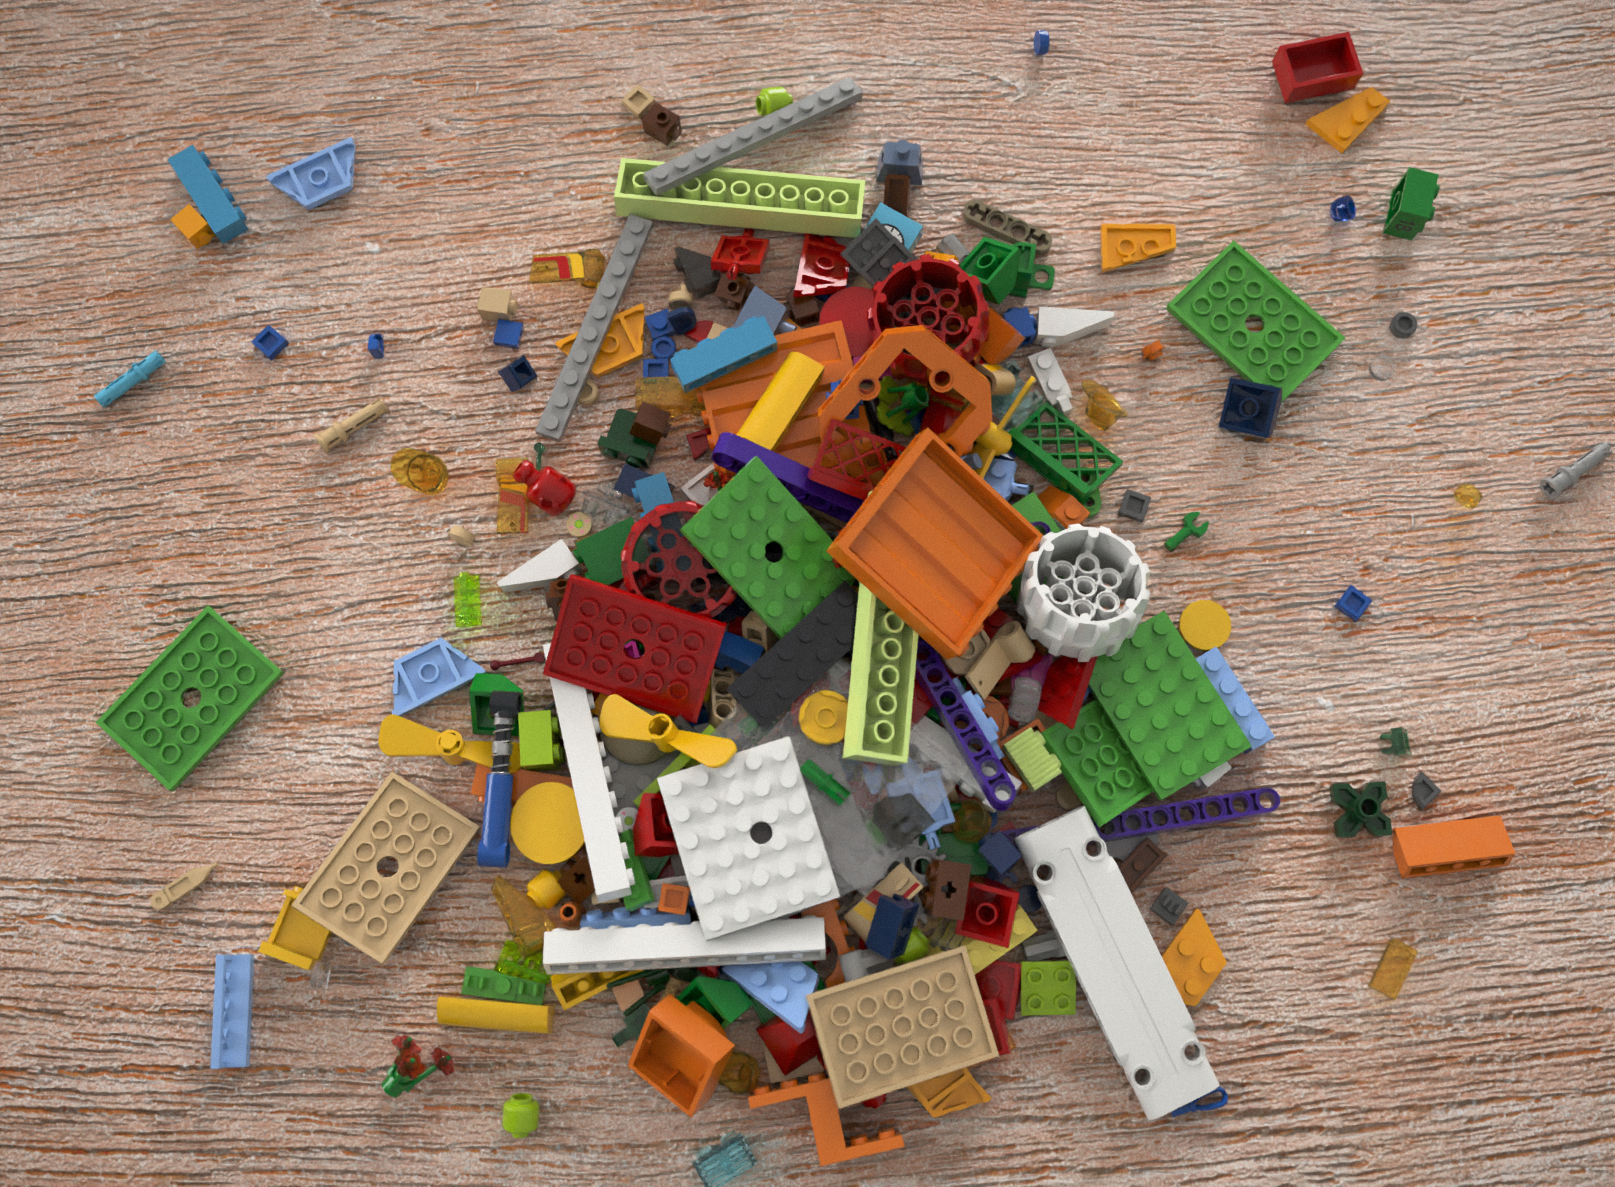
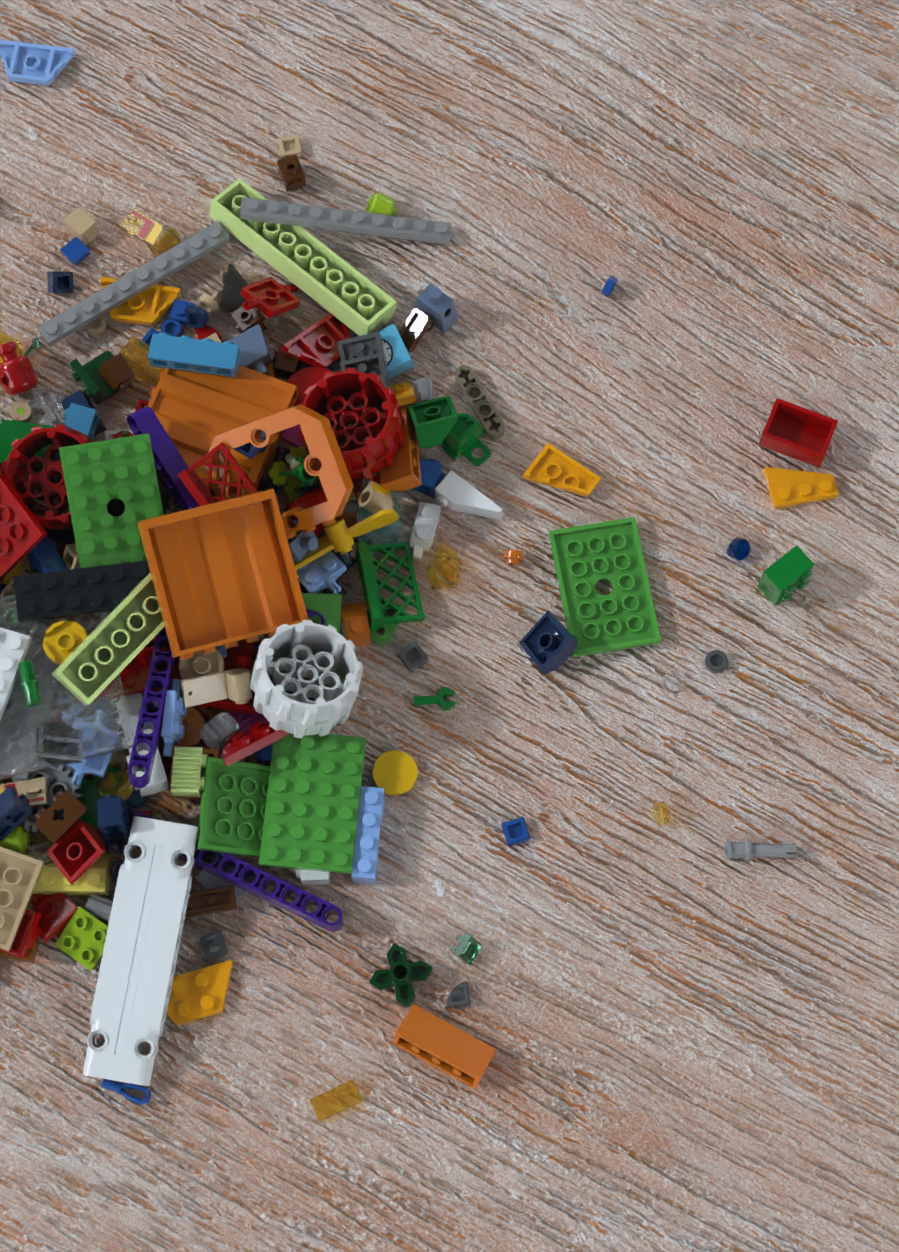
camera: 35 degrees right, 5 degrees down
(782, 401) = (208, 416): yellow brick -> none

